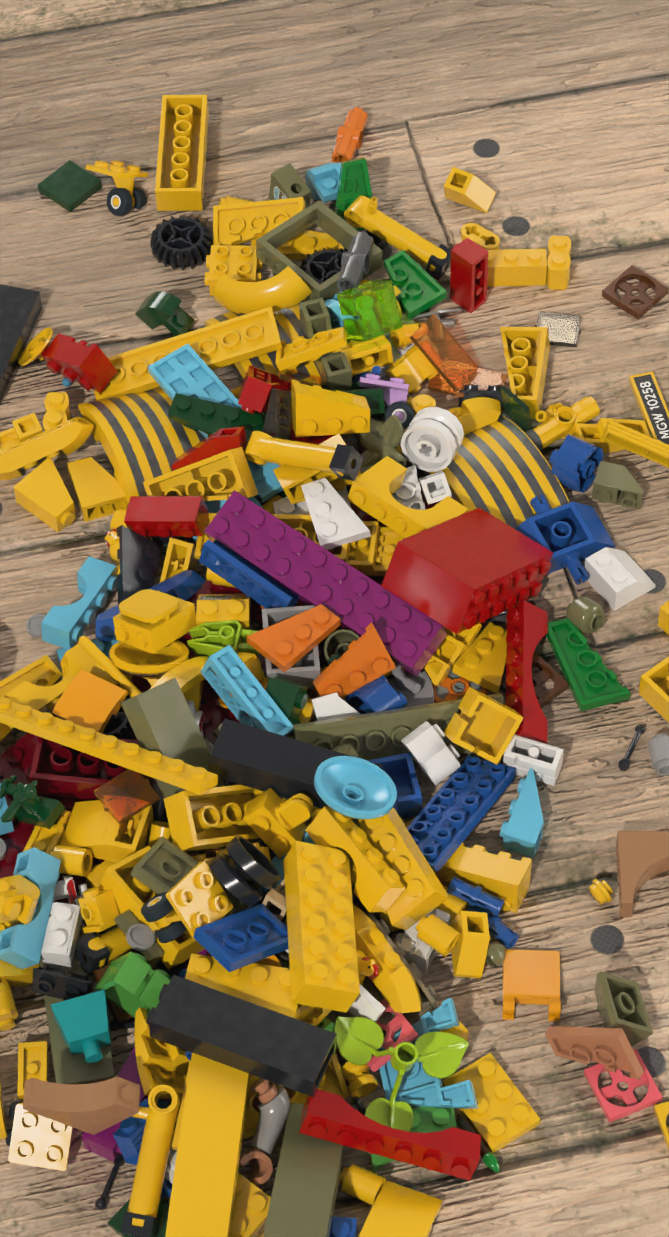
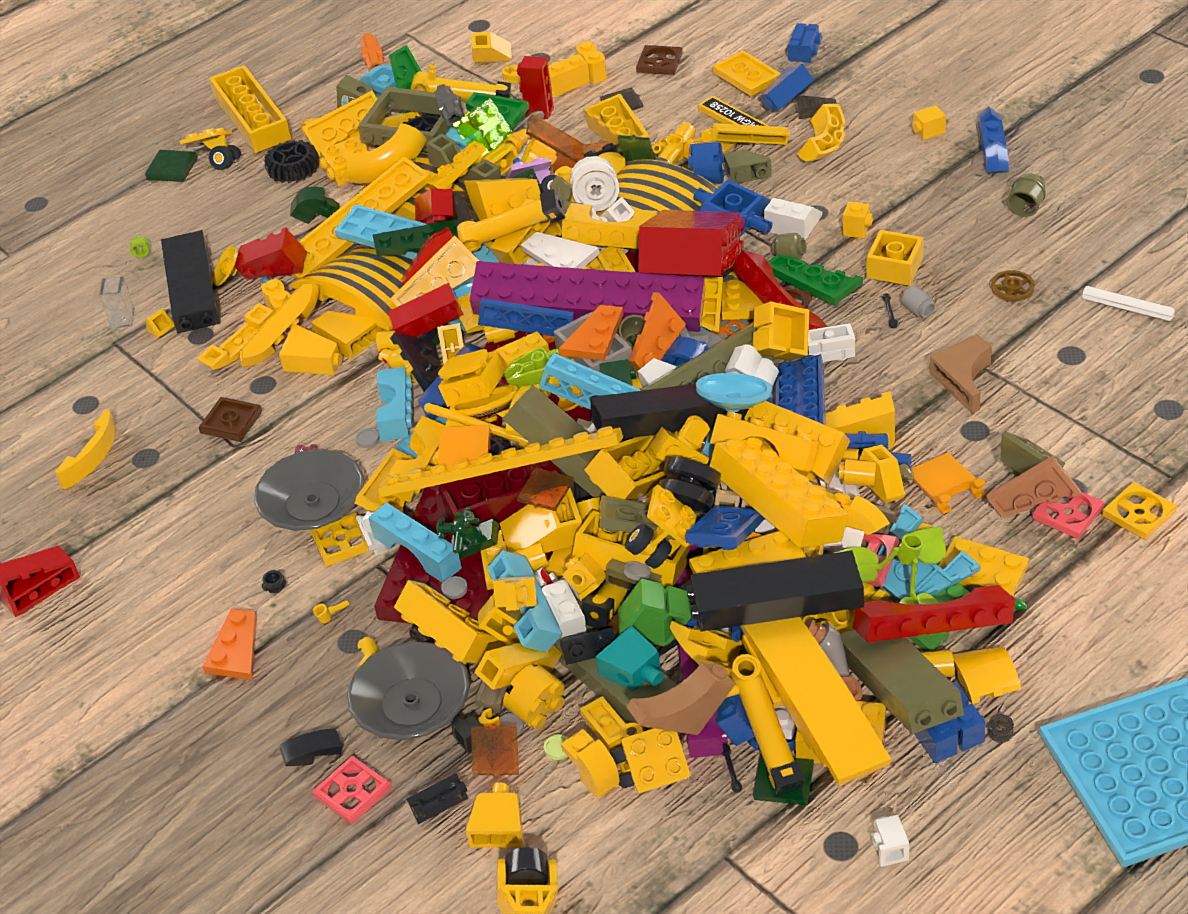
camera: 25 degrees left, 10 degrees down
(526, 821) = (852, 379): medium azure slope -> none
(601, 891) = (947, 401): yellow plate -> none

